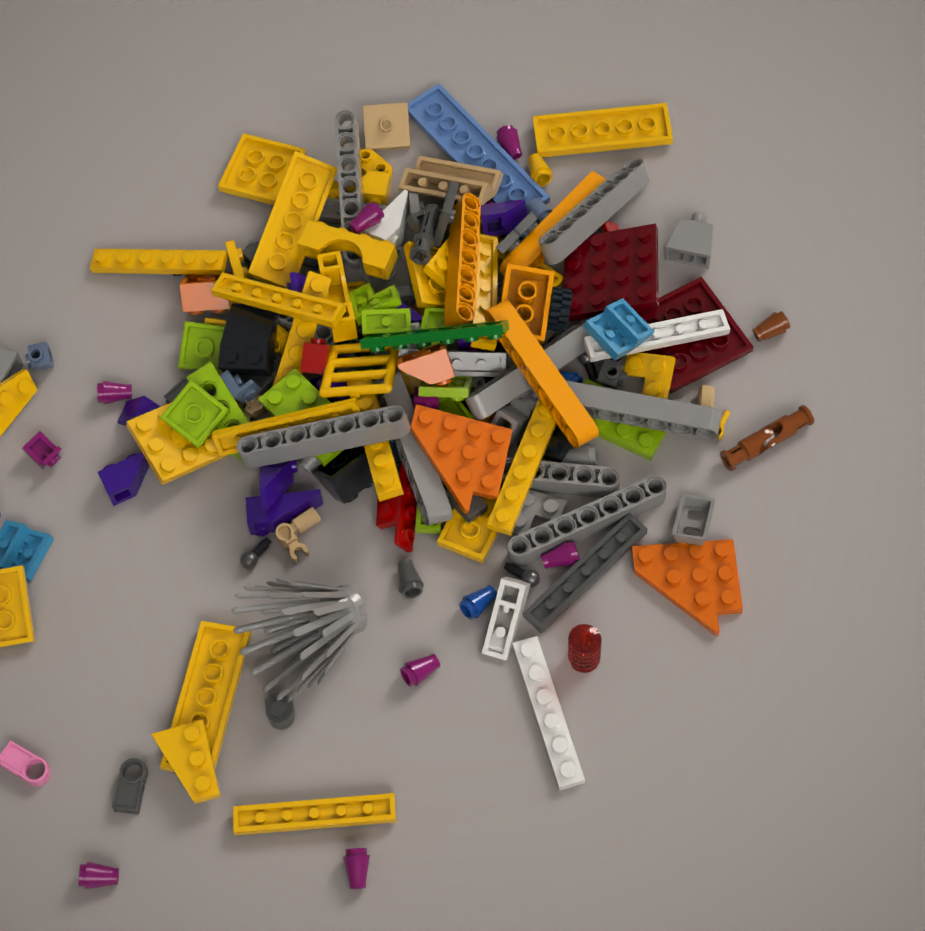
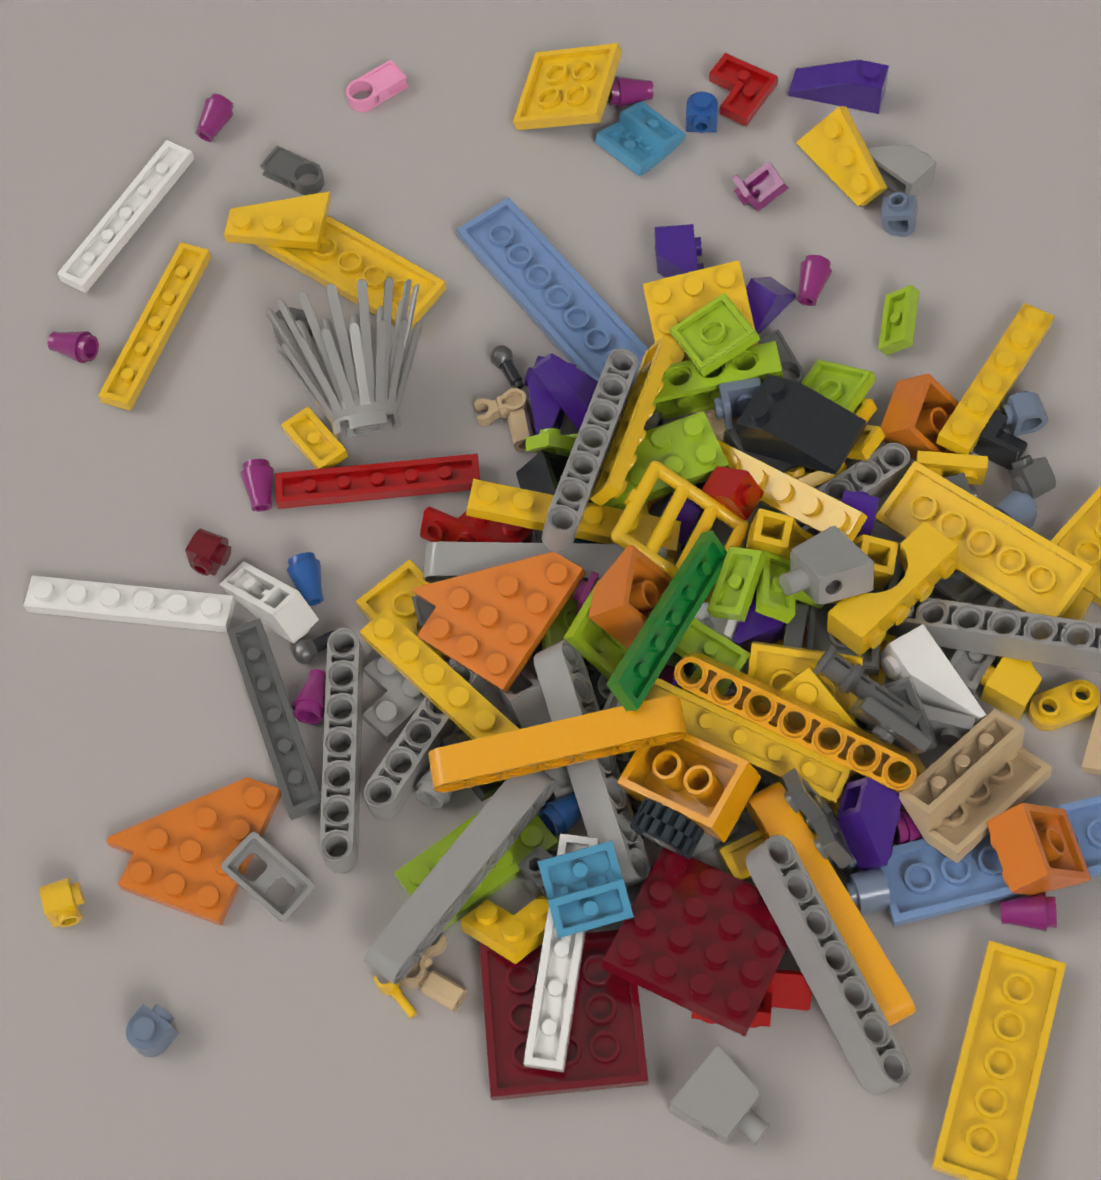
camera: 115 degrees right, 0 degrees up
(130, 330) = (899, 320): none -> lime plate
(178, 239) = (1024, 413): none -> sand blue plate
(185, 545) = (548, 288): none -> medium blue plate
(206, 243) = (998, 444): none -> black panel
(220, 894) = (125, 216): none -> white plate
(225, 222) = (1032, 476): none -> dark grey plate
(255, 222) = (1019, 507): none -> sand blue plate
(279, 300) = (828, 462): yellow plate -> none
(316, 475) = (551, 441): none -> lime plate
(356, 275) = (828, 568): none -> light grey torso
(366, 218) = (936, 630): magenta cone -> none
(368, 649) = (314, 439): none -> yellow plate
(384, 593) = (376, 481): none -> red plate
(409, 580) = (379, 513): dark grey cone -> none
(478, 140) = (1037, 849): none -> orange slope
(487, 674) = (207, 552): none -> dark red plate
(539, 170) = (957, 932): yellow cone -> none
(584, 648) = (166, 659): clear red piece -> none
(764, 439) = (336, 1014): dark orange piece -> none
(771, 634) = (62, 902): none -> yellow plate
(772, 326) = (514, 1147): dark orange cone -> none
(818, 542) = (150, 1031): none -> sand blue plate

